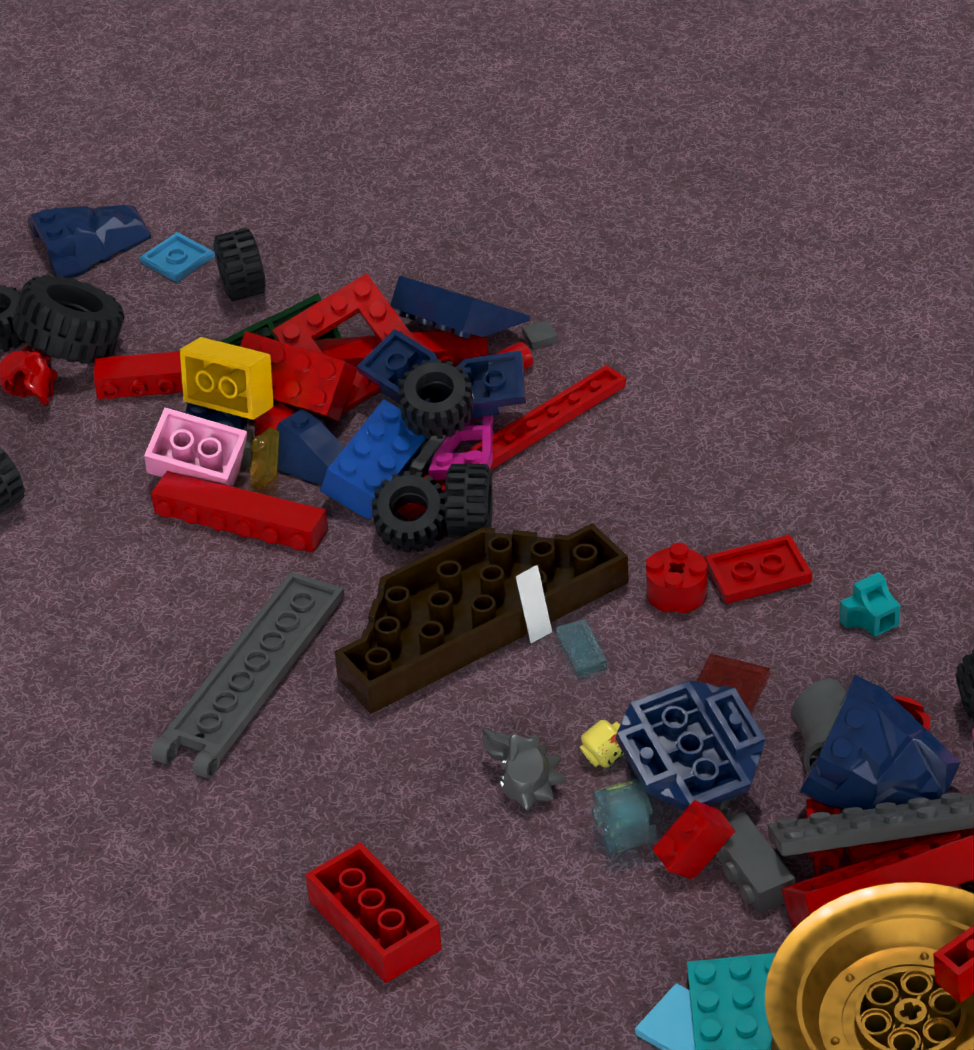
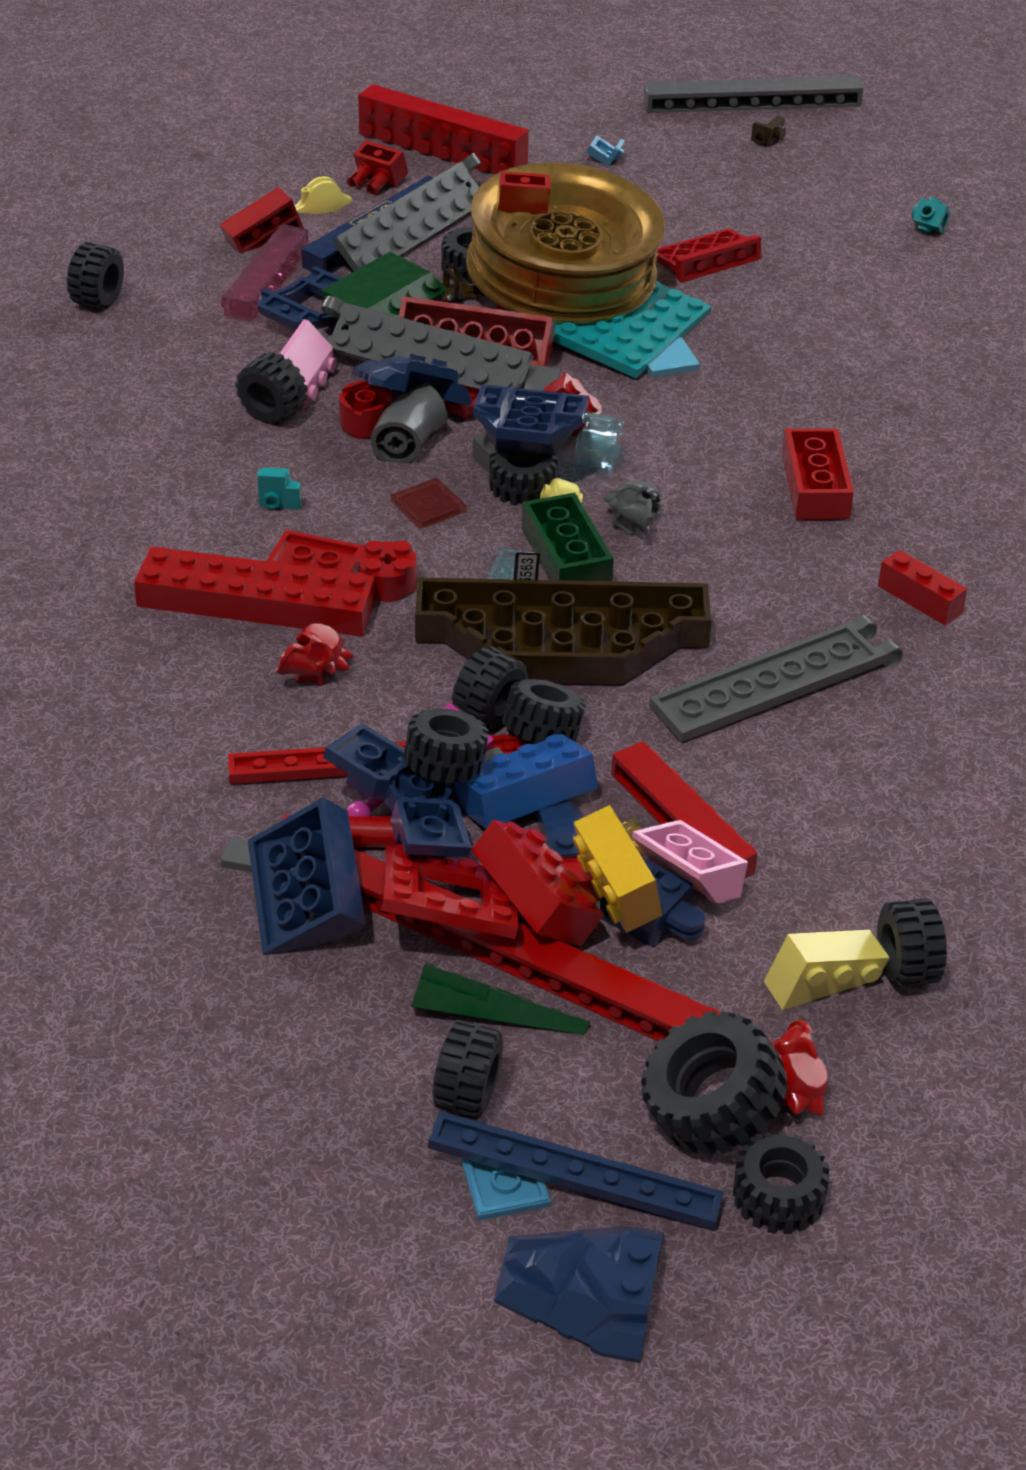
camera: 150 degrees left, 0 degrees up
(49, 447) = (823, 965): none -> light yellow wedge
(151, 260) = (576, 1170): none -> dark blue plate
(174, 831) = (922, 587): none -> red brick
(546, 687) = (566, 539): none -> dark green brick
(646, 474) = (314, 655): none -> red head
(767, 501) = (254, 590): none -> red brick

